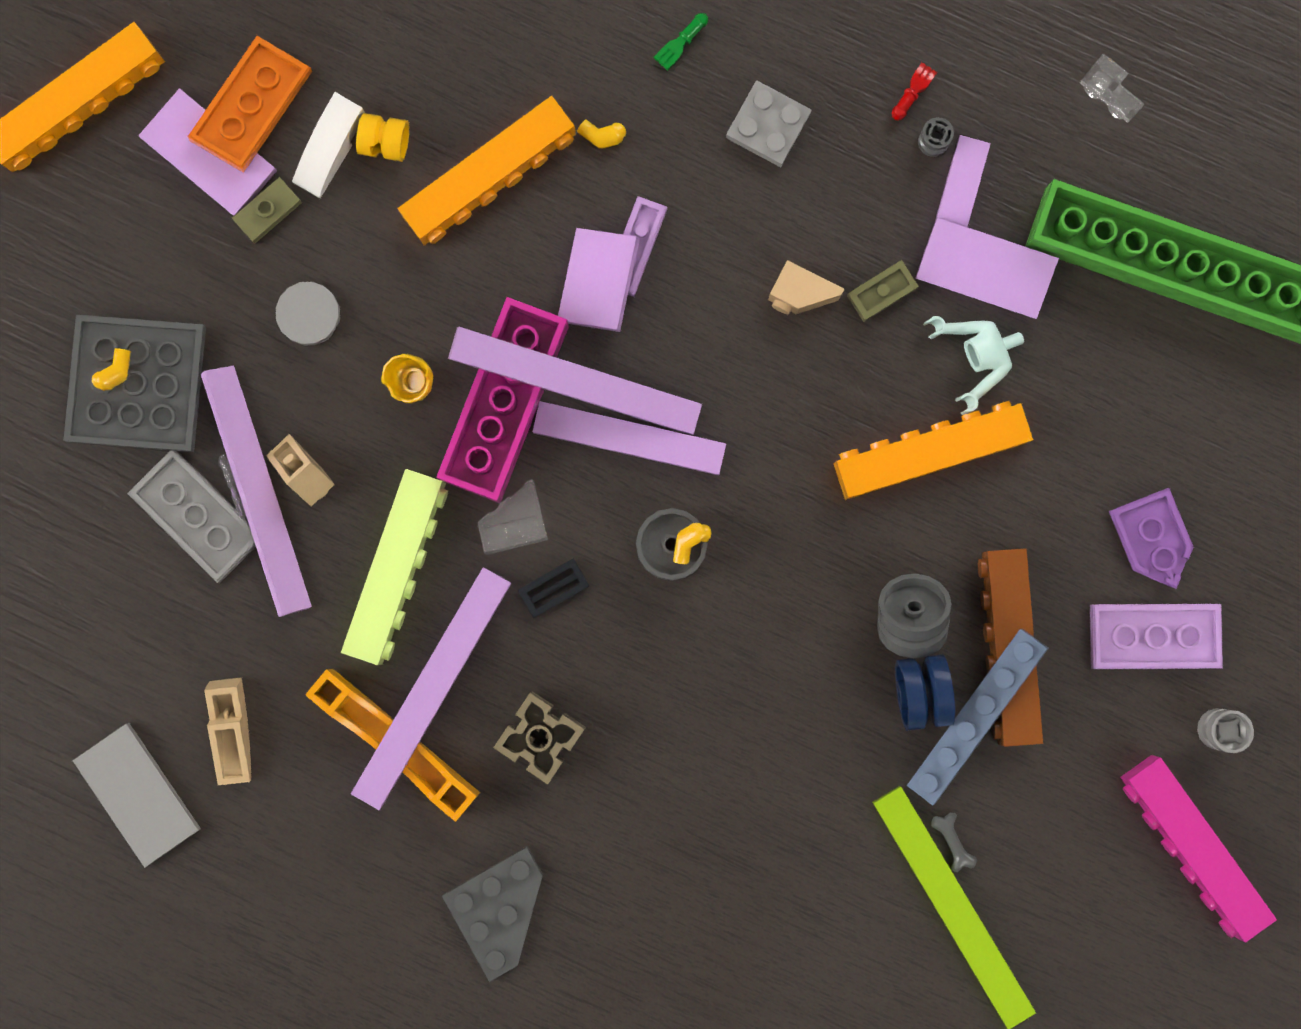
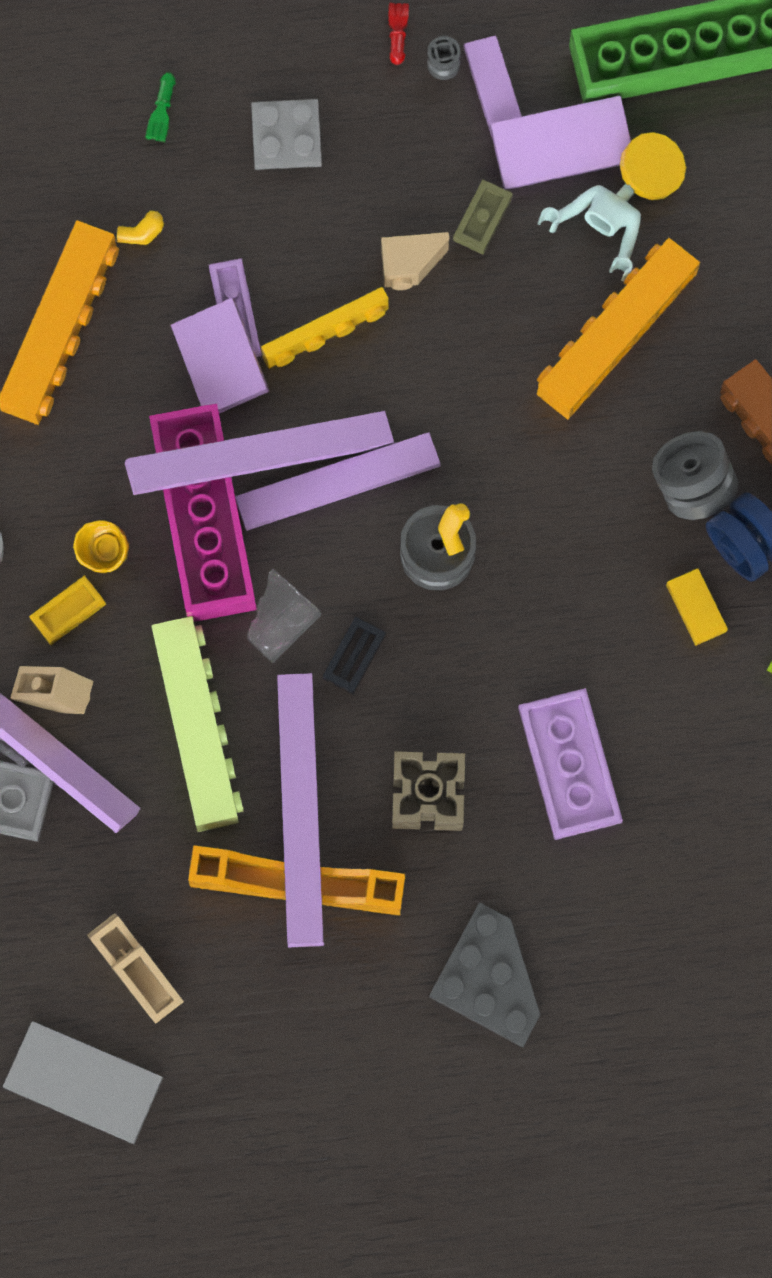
camera: 35 degrees left, 10 degrees down
(353, 411) = (67, 610): none -> yellow tile
(668, 781) = (570, 764): none -> lavender tile
(710, 308) = (313, 334): none -> yellow plate
(849, 717) = (696, 607): none -> yellow tile
(1047, 332) = (652, 166): none -> yellow tile

